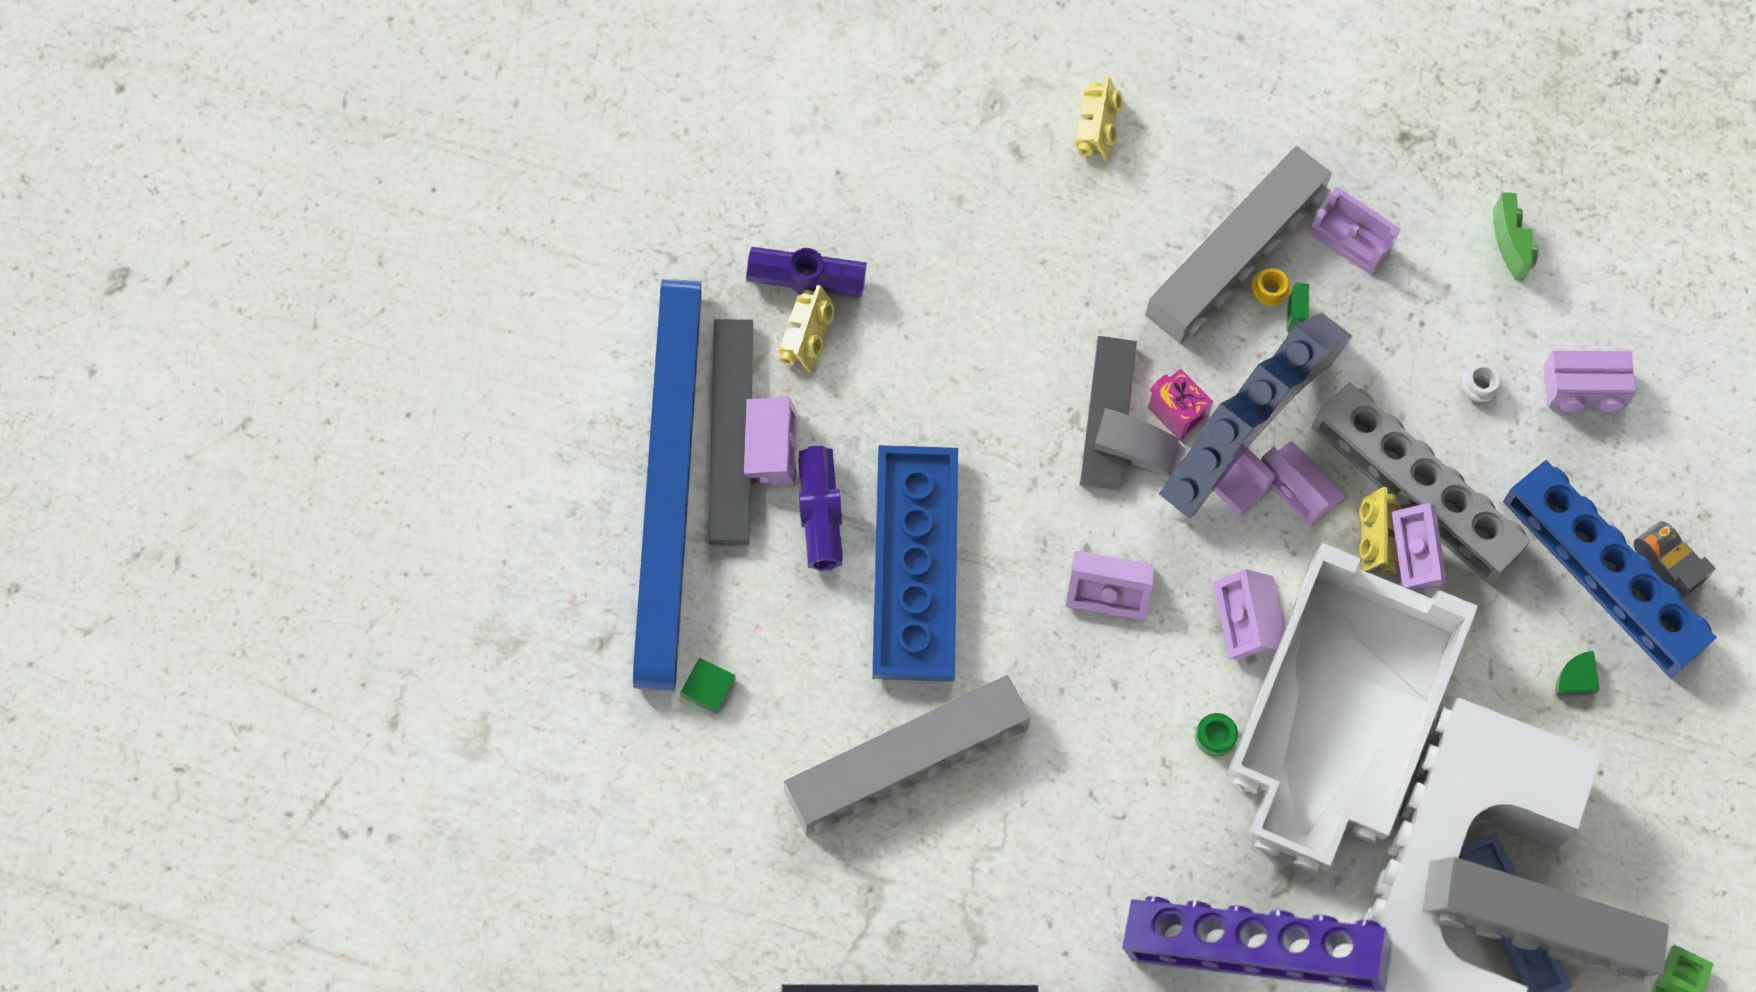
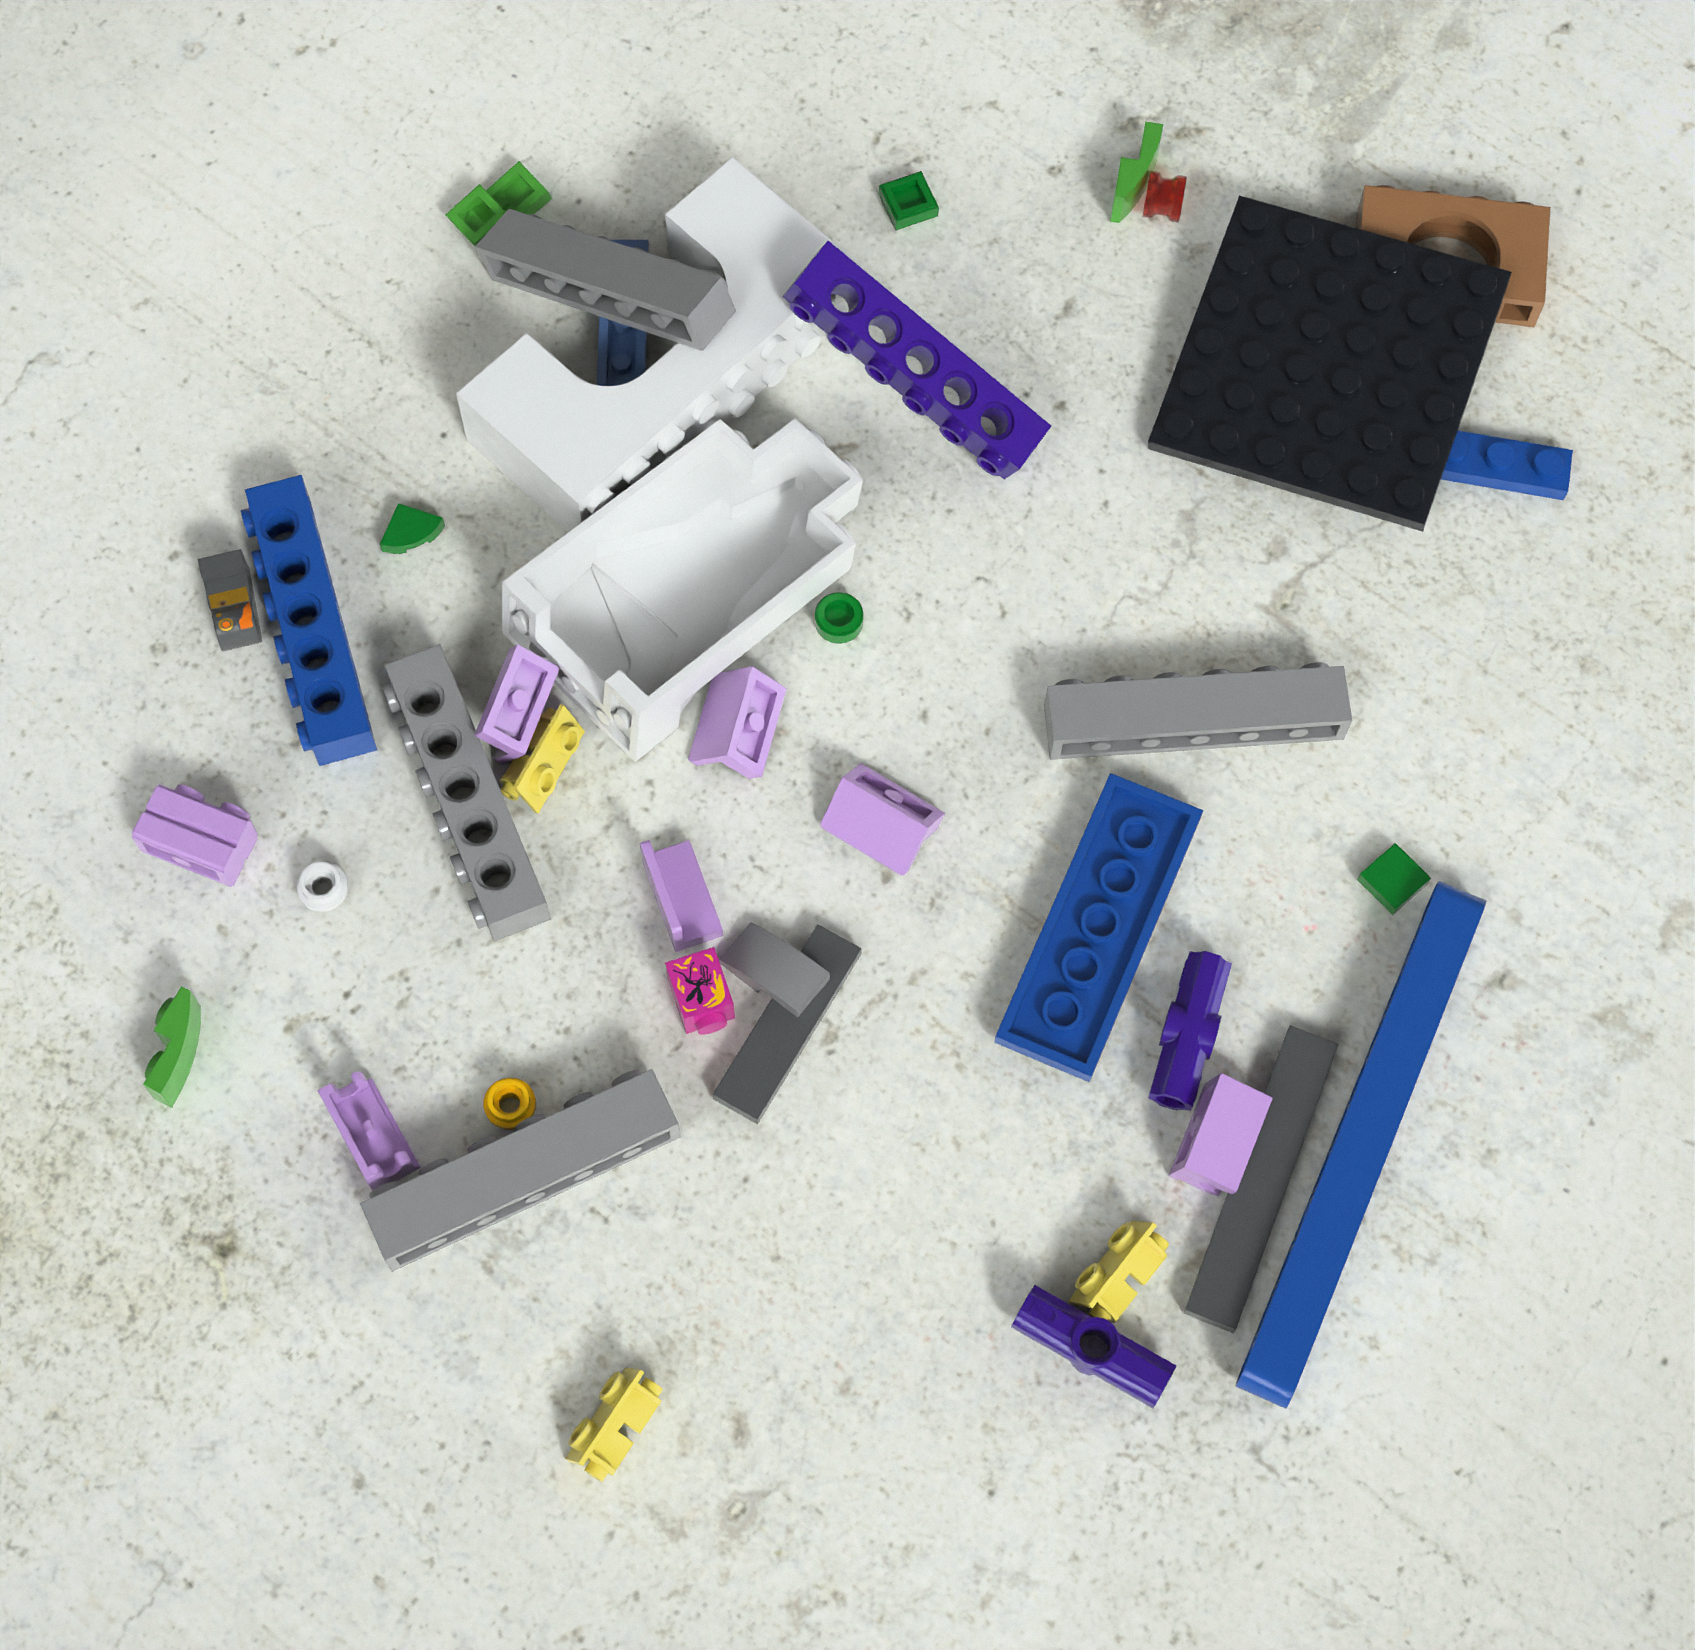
camera: 155 degrees left, 0 degrees up
(1242, 418) = (603, 922): arch -> none
(1297, 305) = (494, 1055): green tile -> none
(1302, 483) = (600, 852): lavender panel -> none

